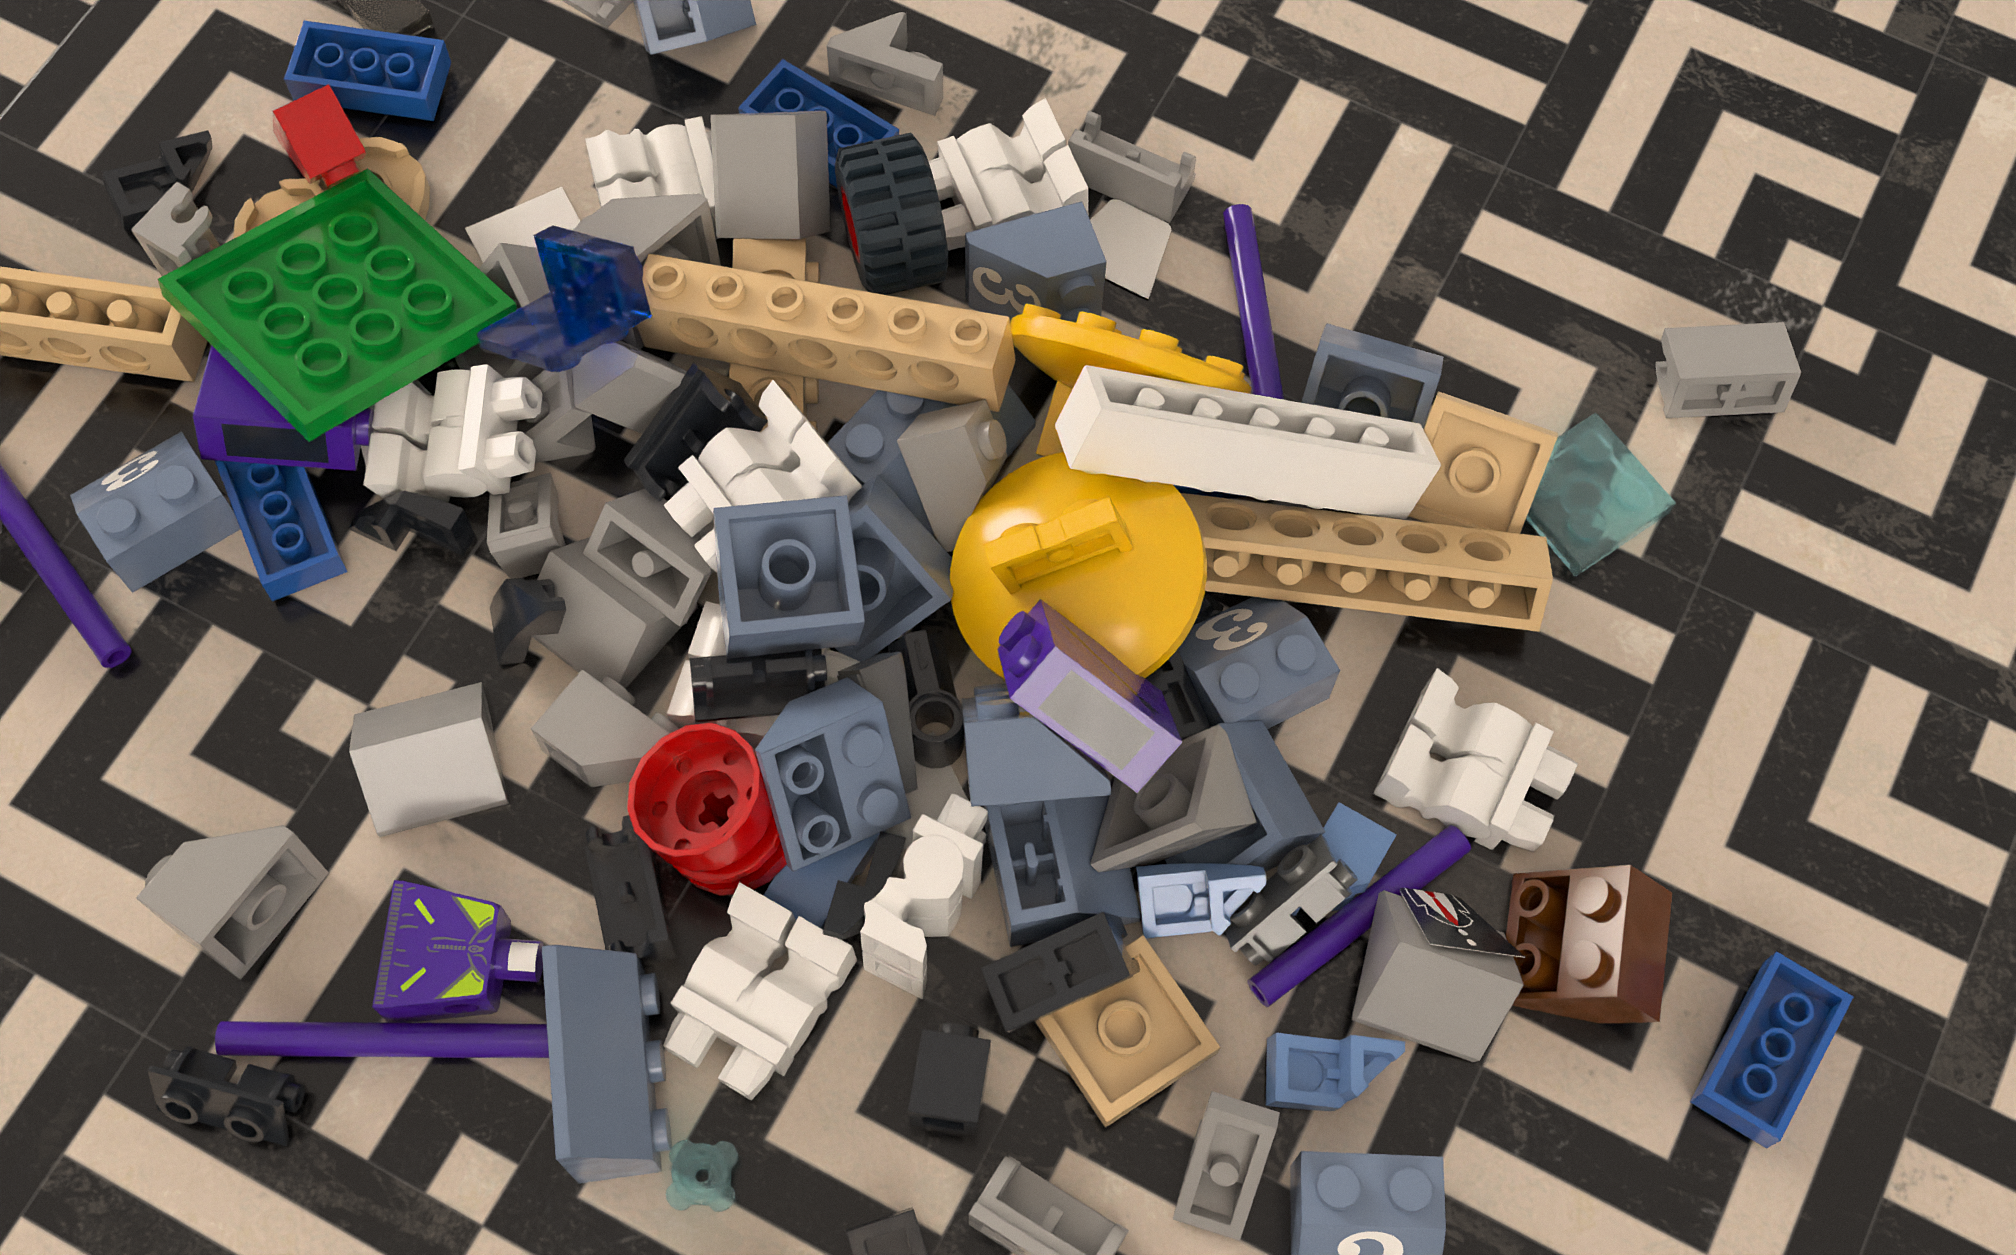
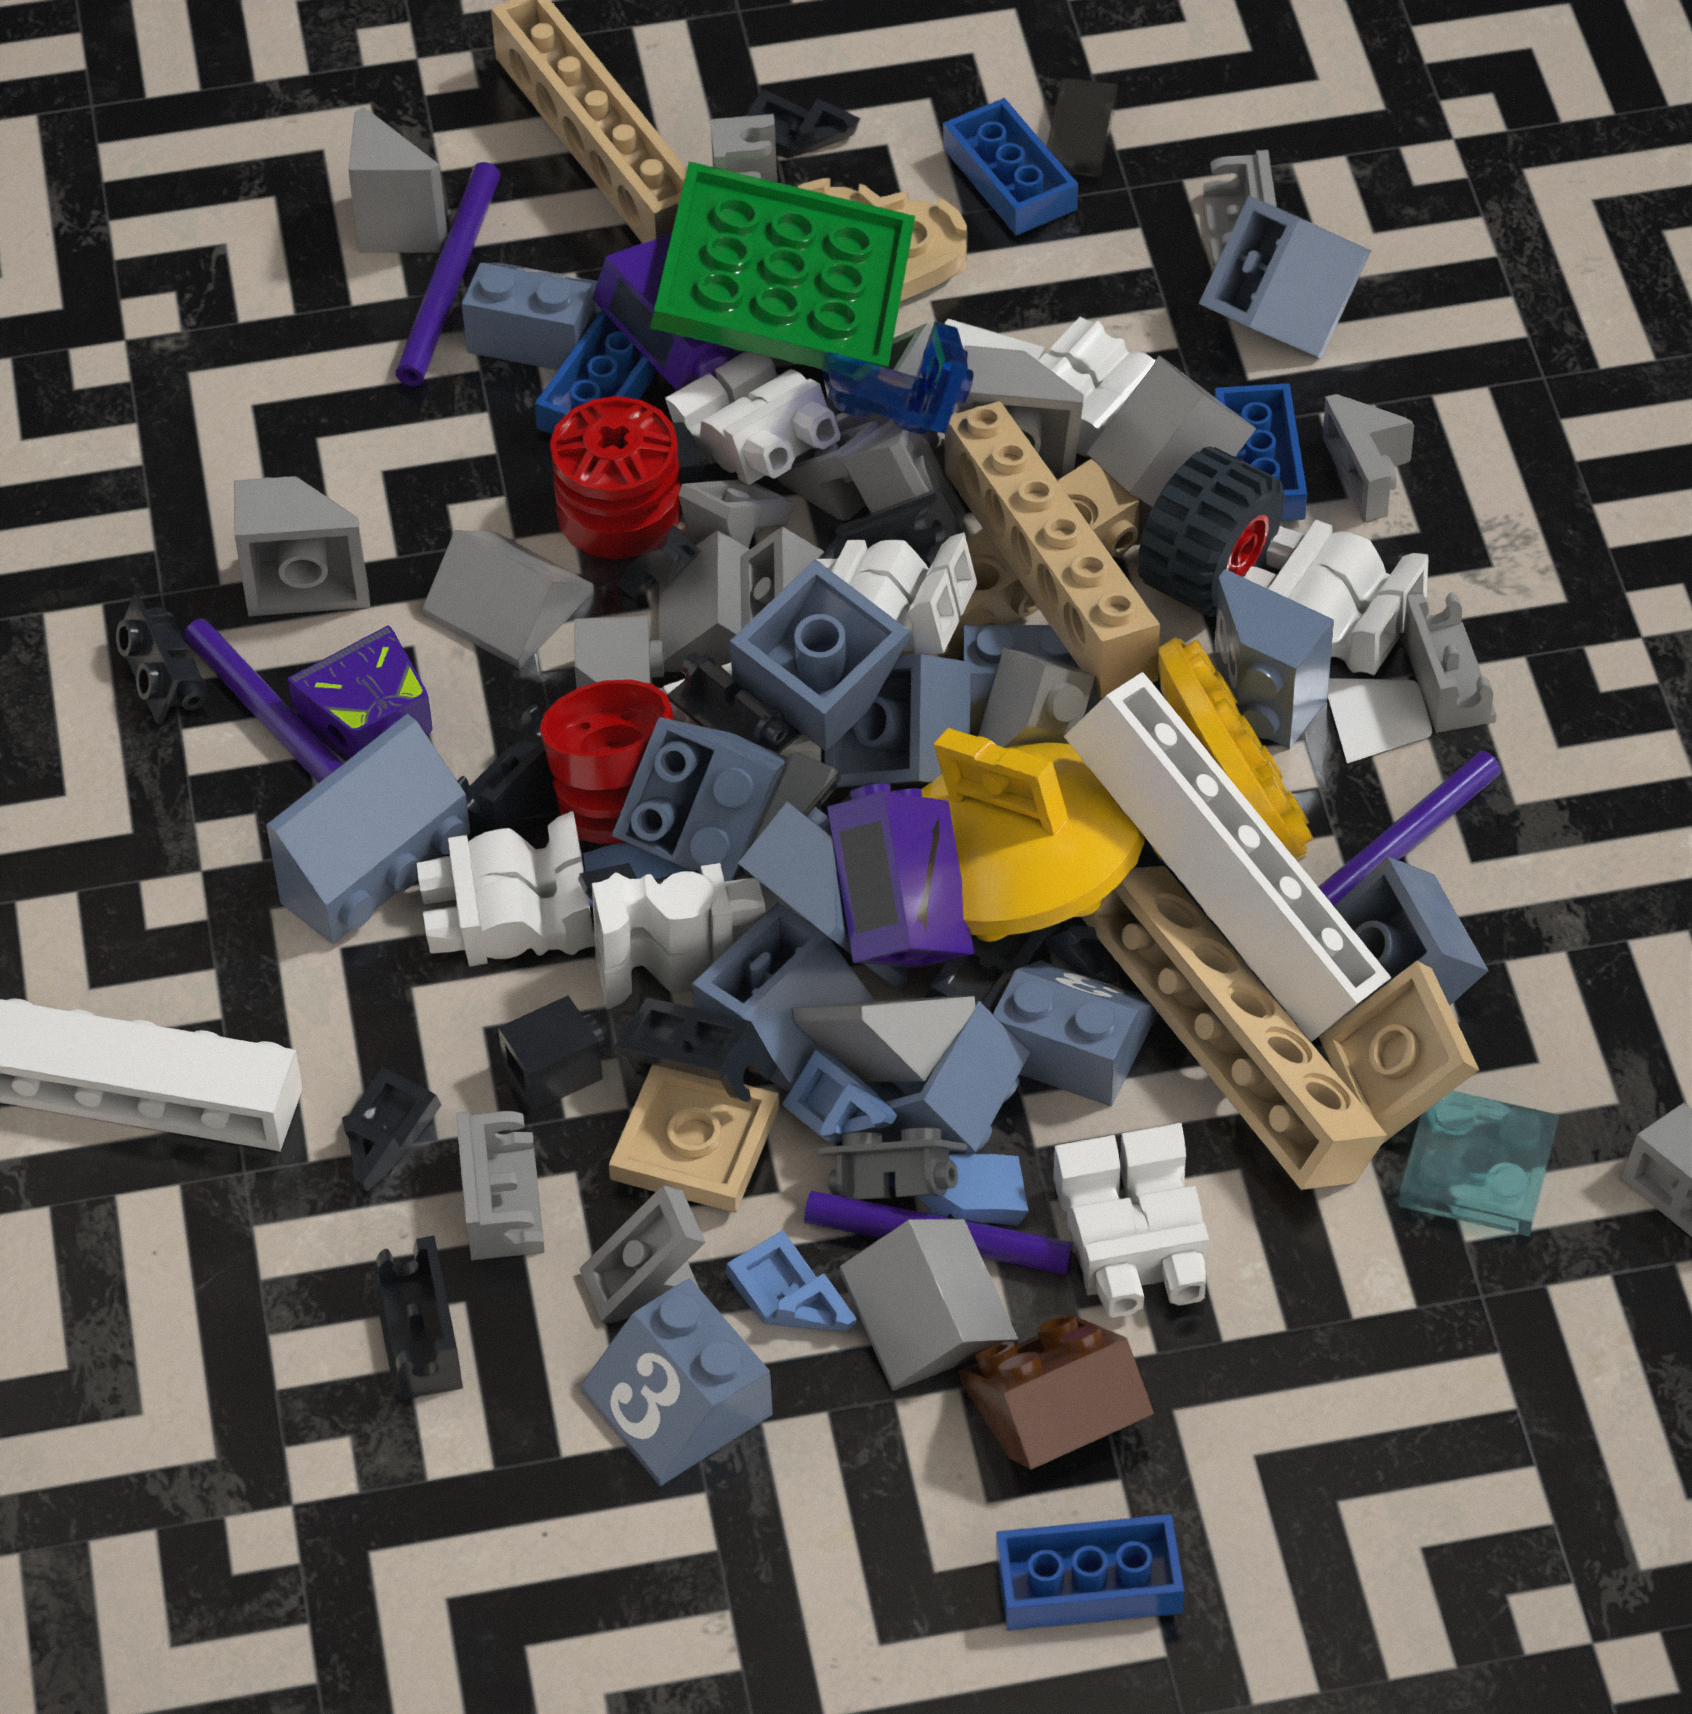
camera: 55 degrees right, 15 degrees down
(319, 137) = (903, 163): red slope -> none
(407, 582) = (615, 476): none -> red wheel
(687, 1161) = (345, 947): clear light blue plate -> none
(1454, 924) = (981, 1281): black sticker -> none

